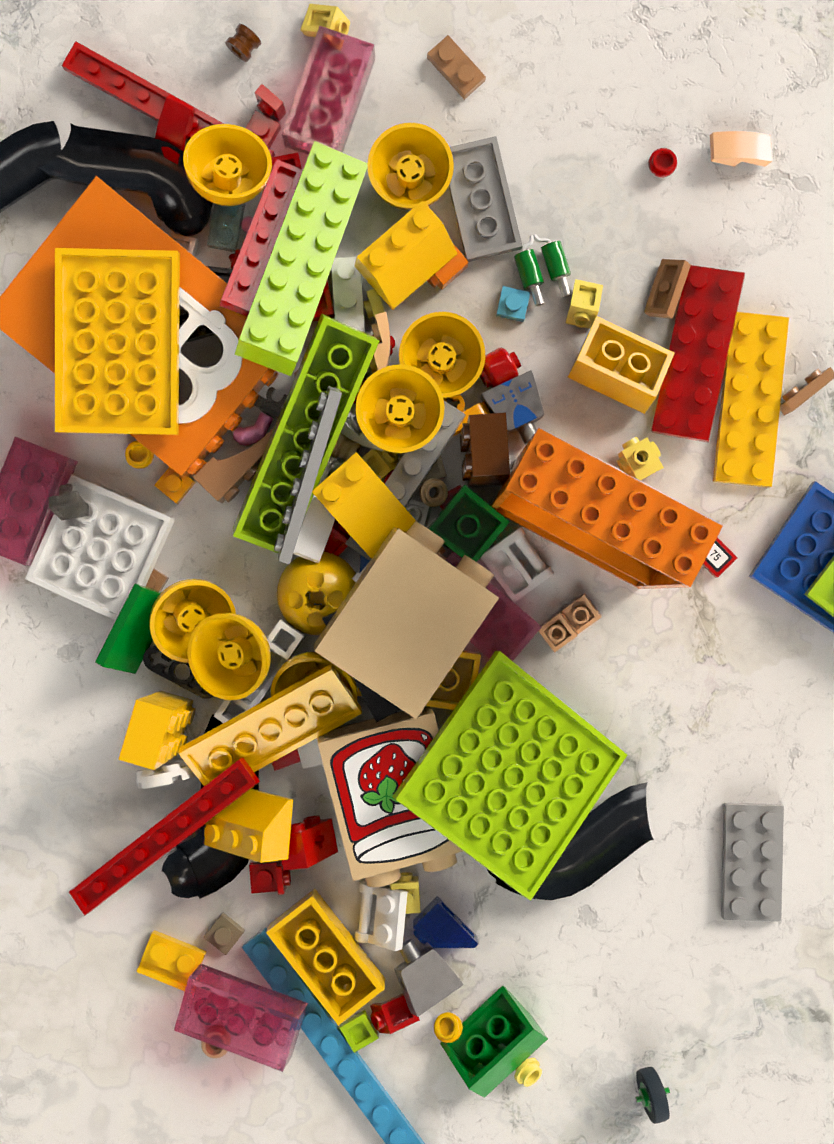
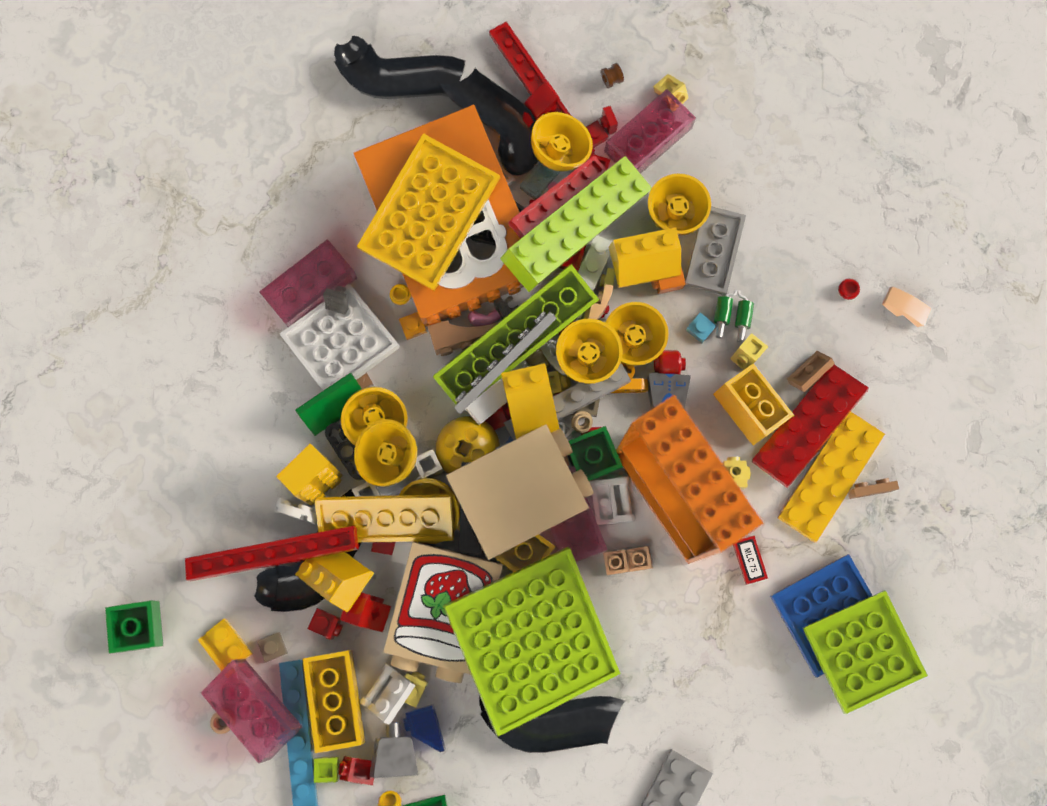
camera: 25 degrees right, 10 degrees down
(57, 998) = (134, 626): none -> green brick
(456, 67) = (742, 160): medium nougat plate -> none
(486, 450) = (630, 405): reddish brown brick -> none

